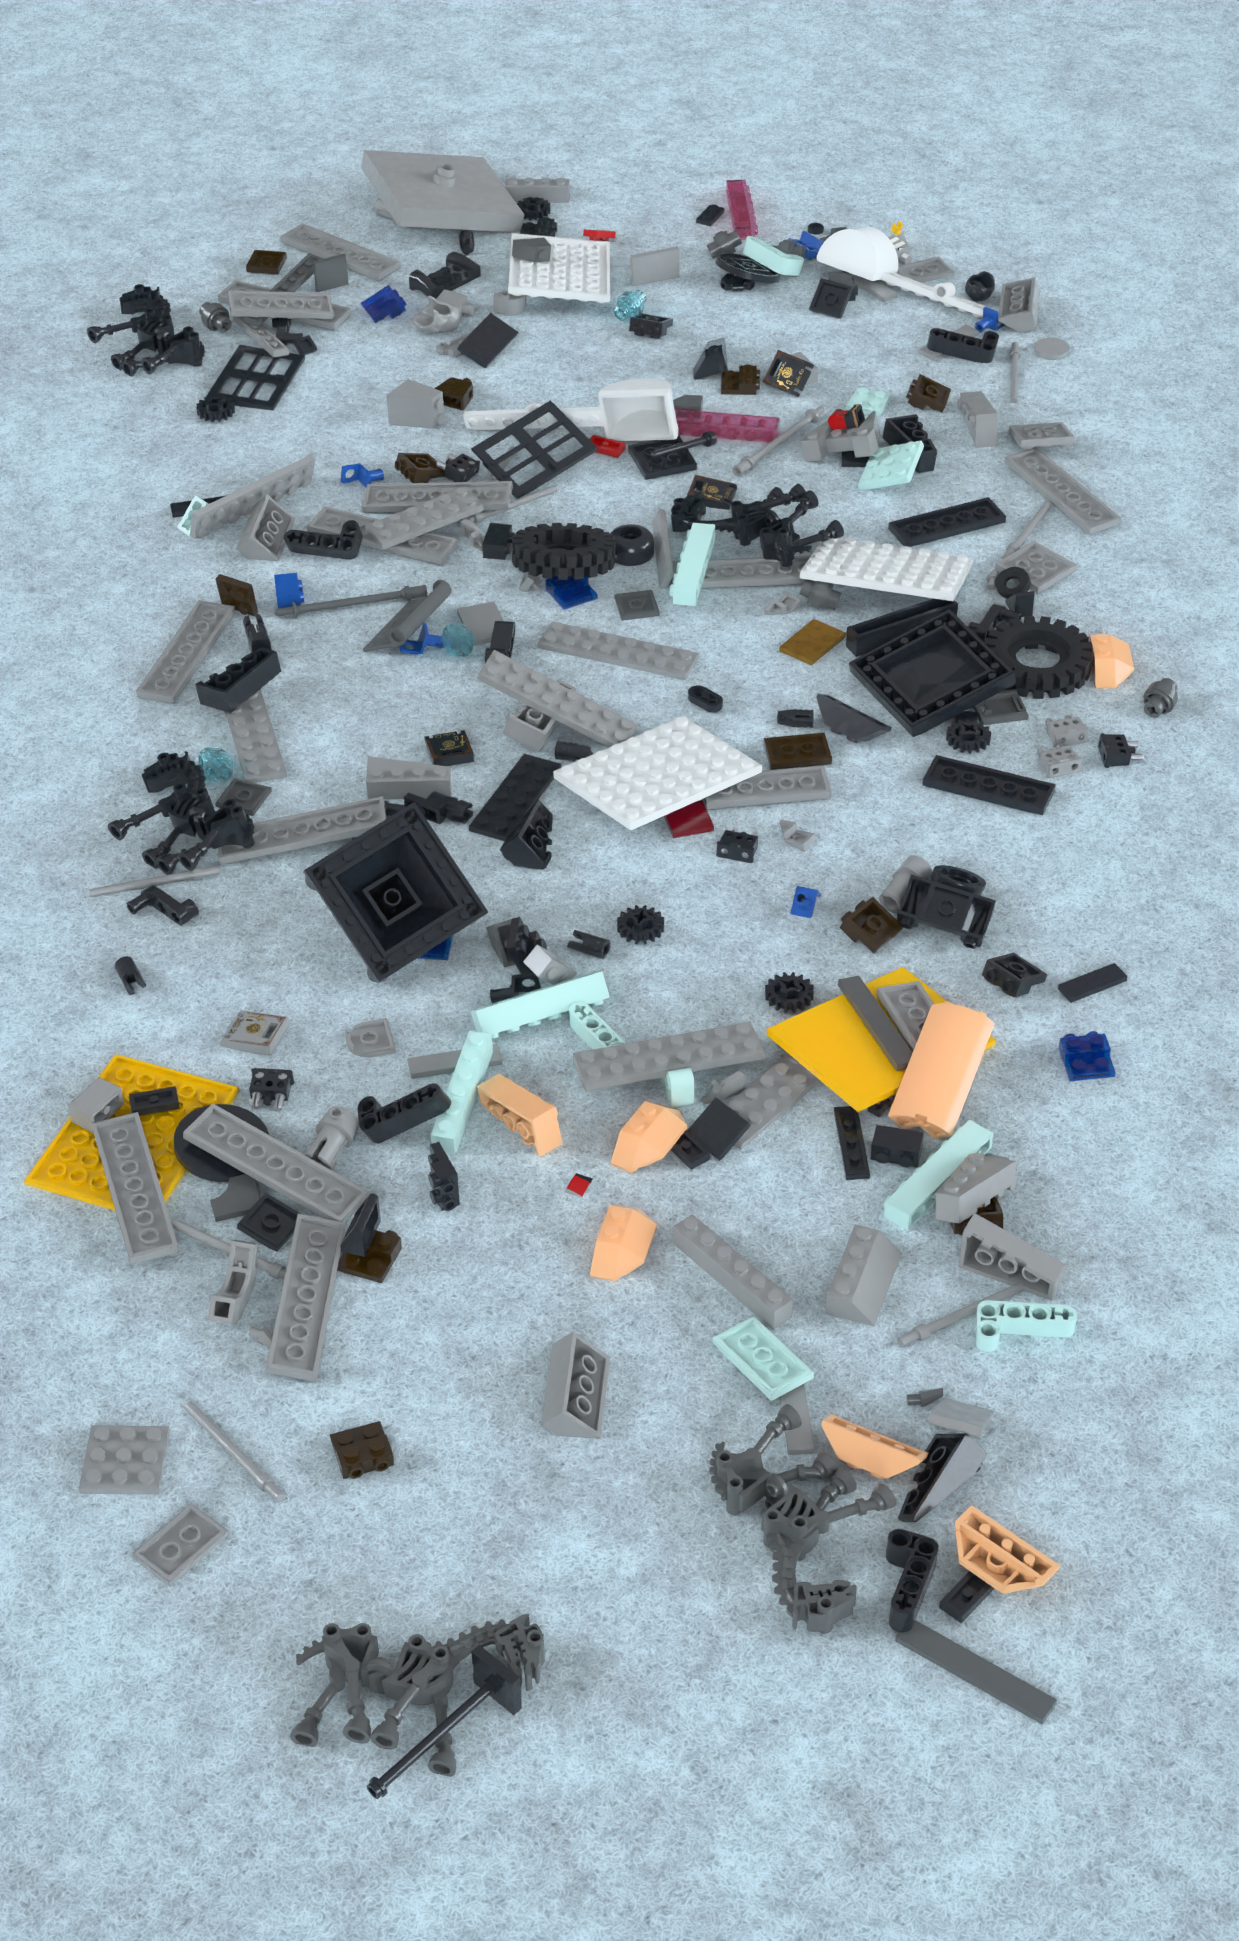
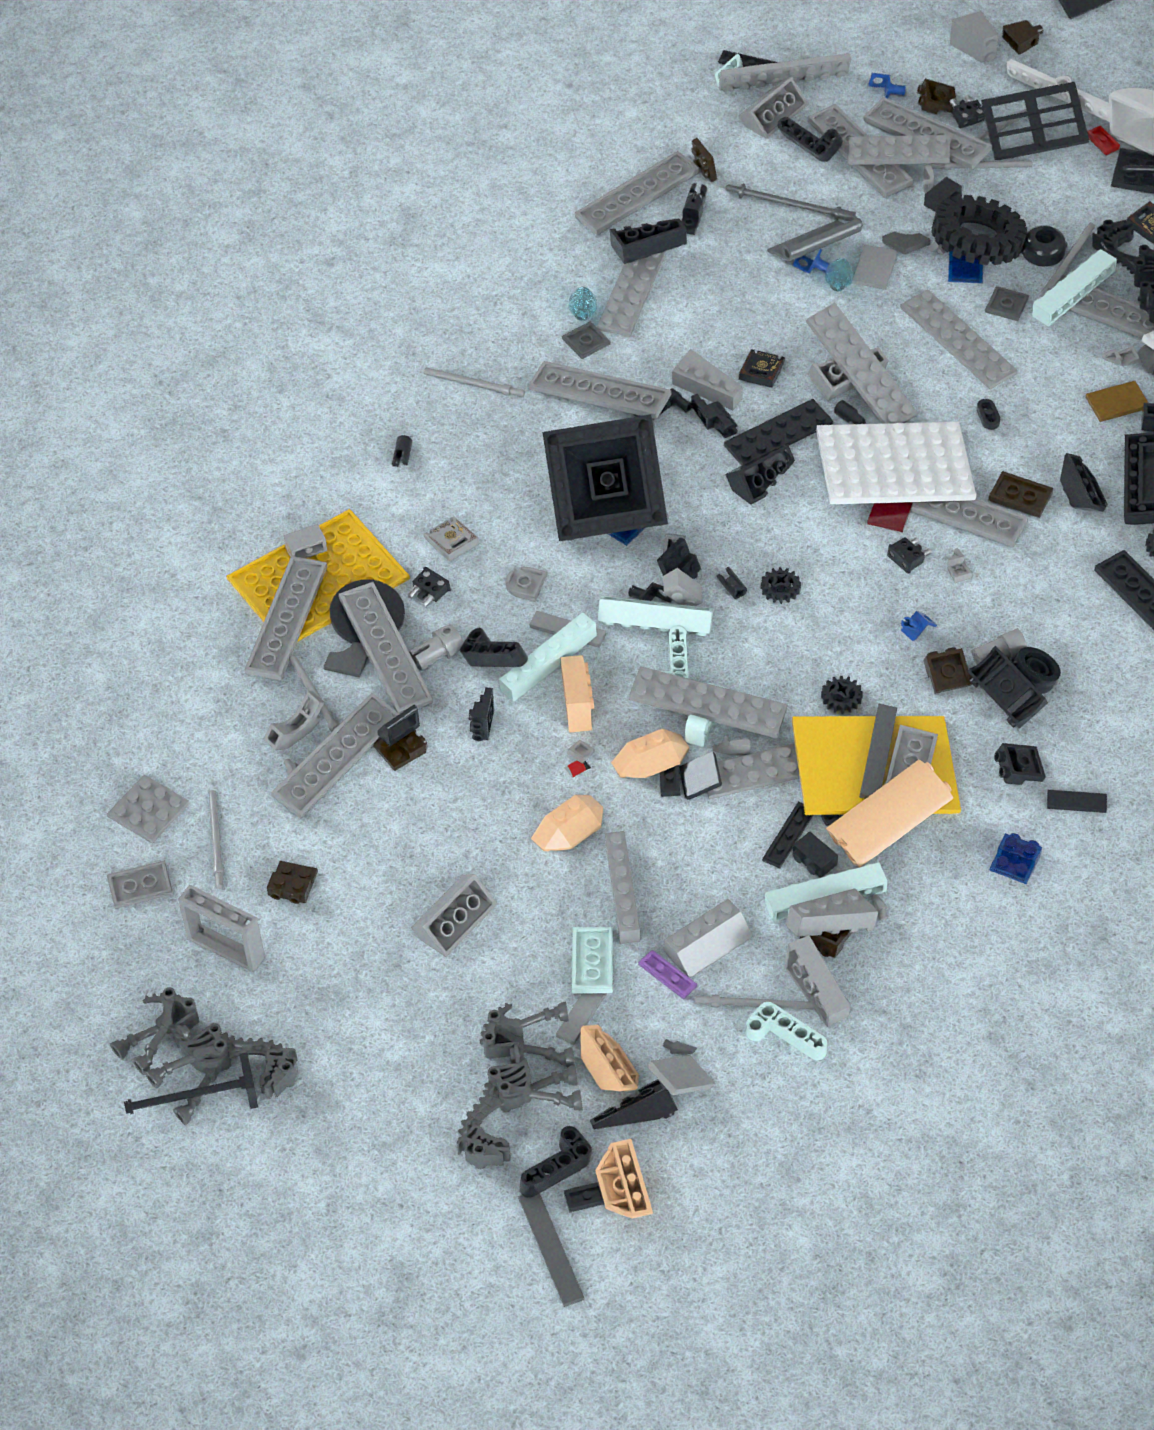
camera: 35 degrees right, 10 degrees up
(154, 1101) = (344, 559): black plate -> none
(155, 897) = (460, 393): black beam -> none
(189, 813) = (530, 336): black animal -> none
(269, 1222) = (354, 687): black tile -> none
(288, 590) = (749, 171): blue brick -> none
(334, 1504) = (196, 902): none -> light grey window
(497, 592) = (906, 242): none -> dark grey tile
(502, 638) = (865, 298): black beam -> none
(570, 1167) = (580, 751): none -> light grey tile
(796, 718) = (1040, 463): black hinge -> none
(850, 1332) = (667, 974): none -> medium lavender tile

